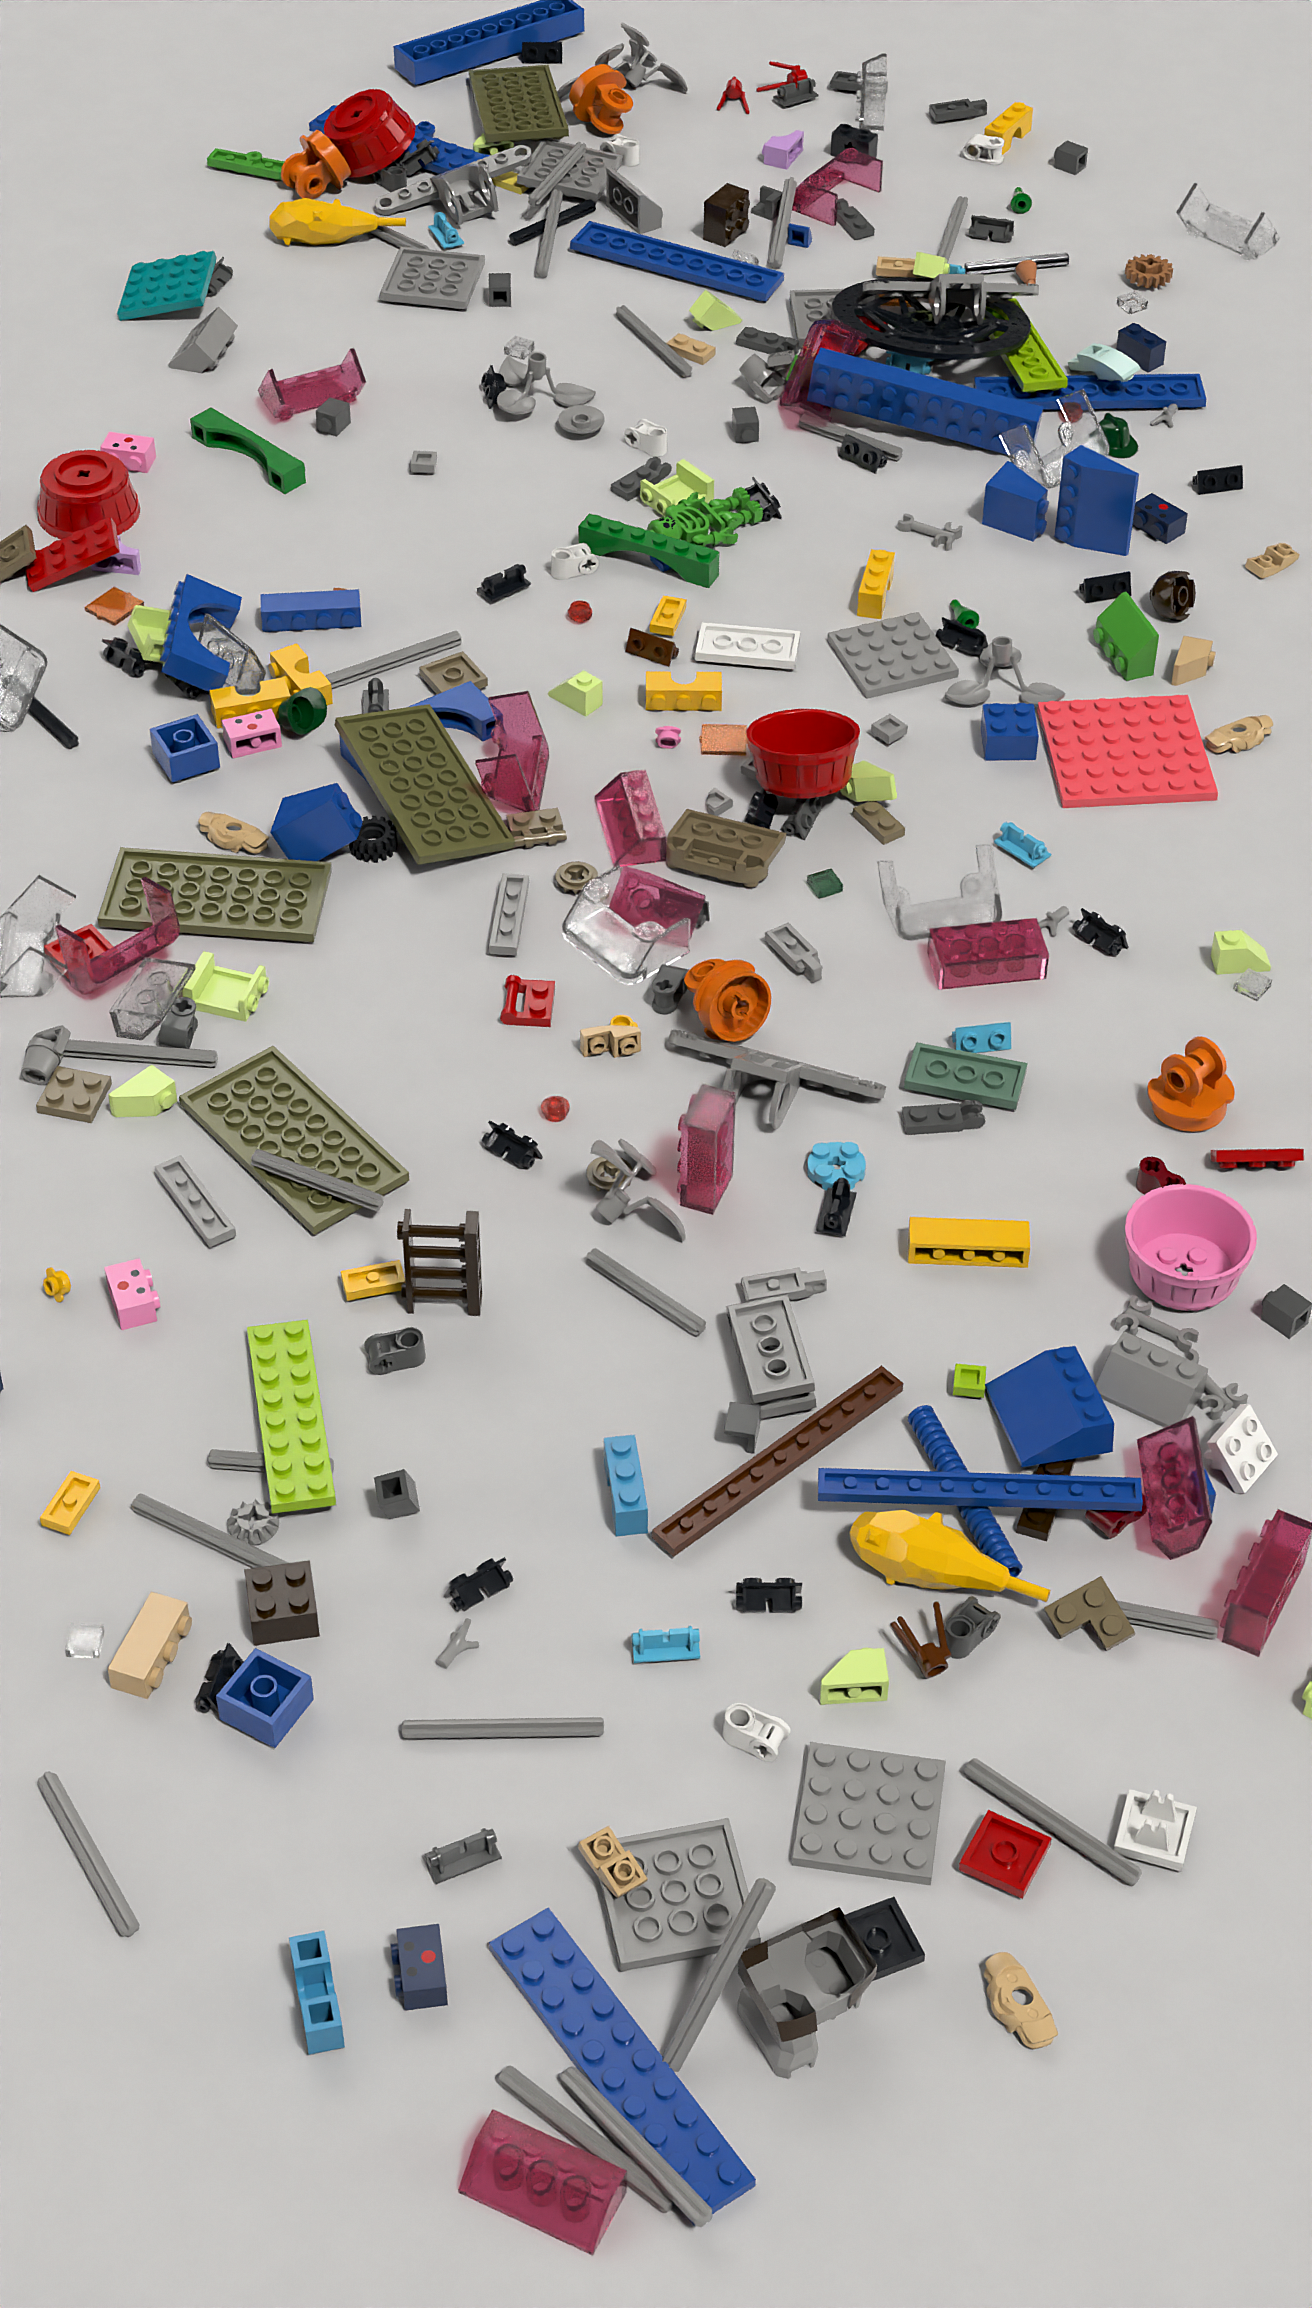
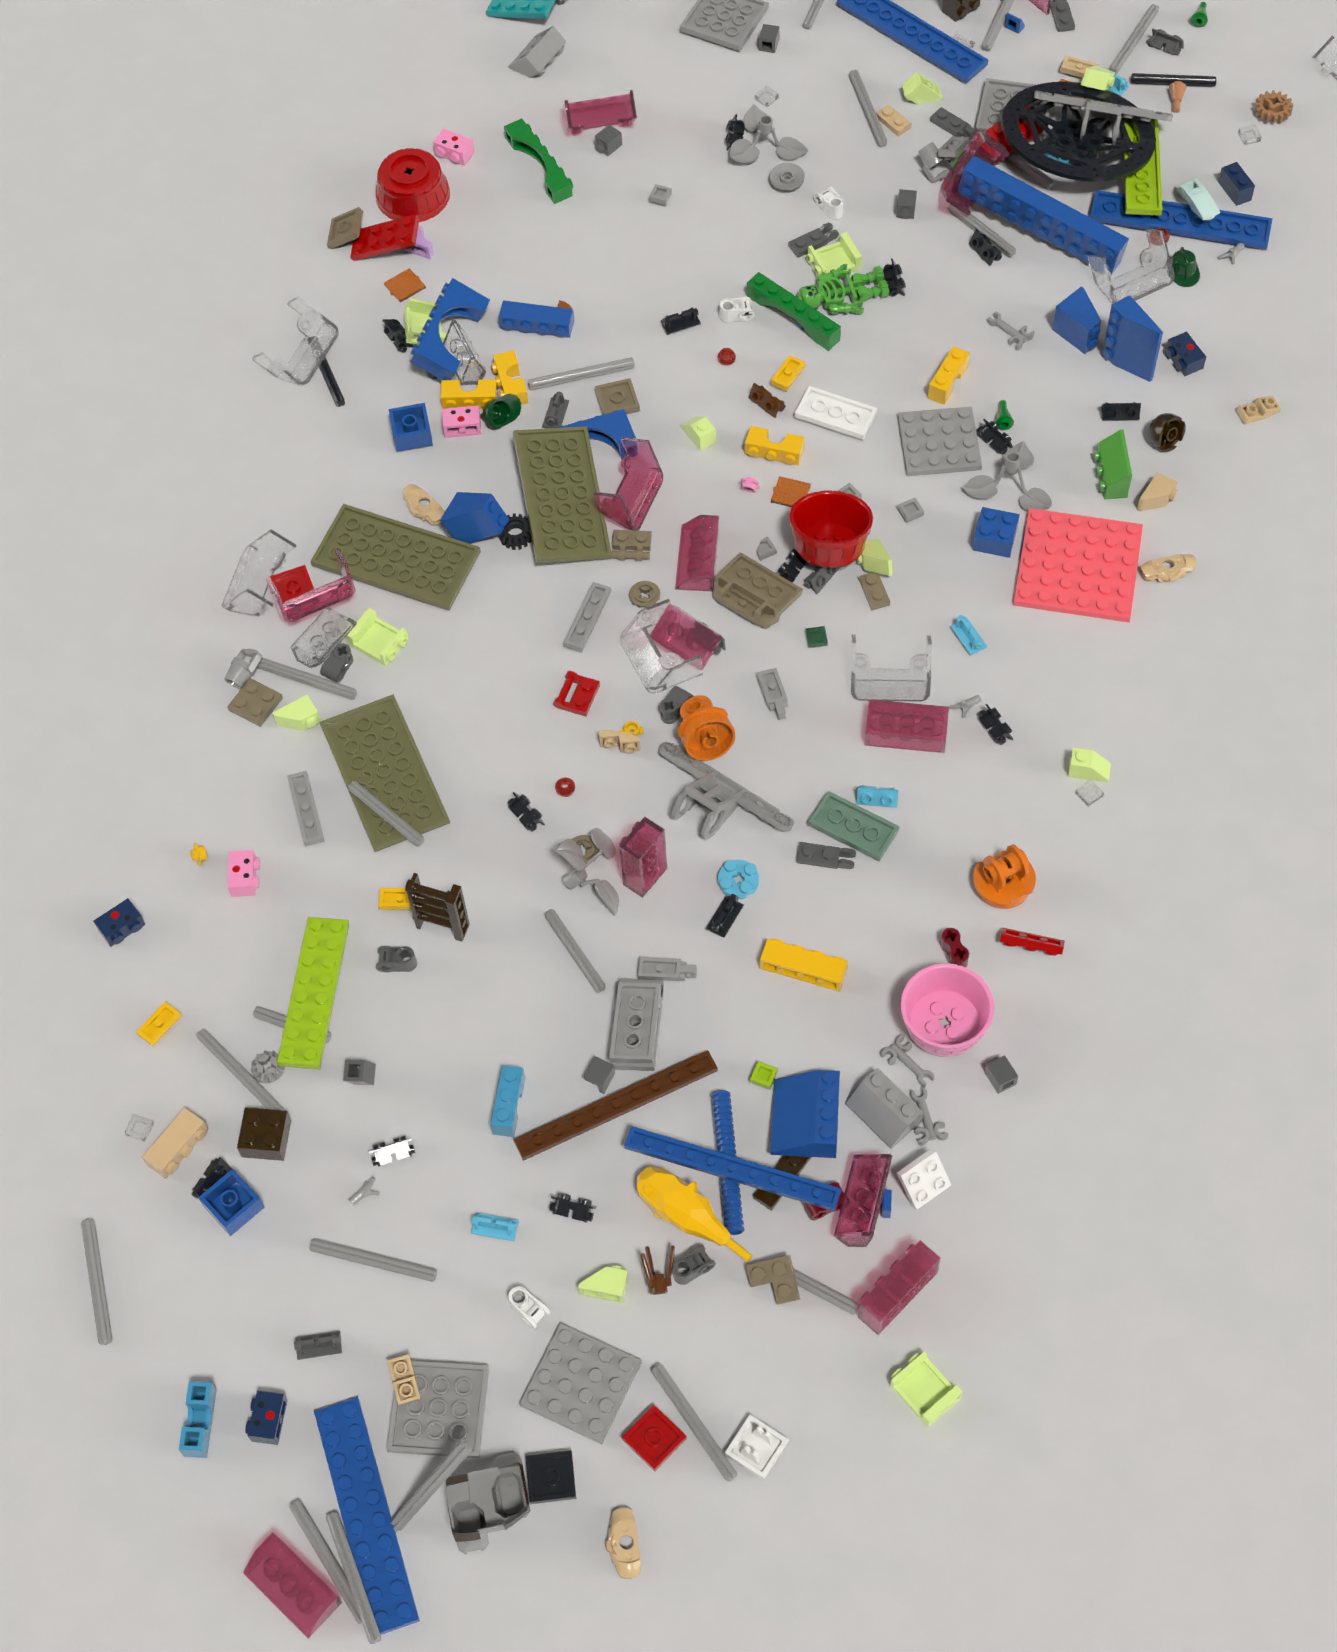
camera: 20 degrees right, 15 degrees up
(1219, 479) = (1247, 325): black hinge -> none

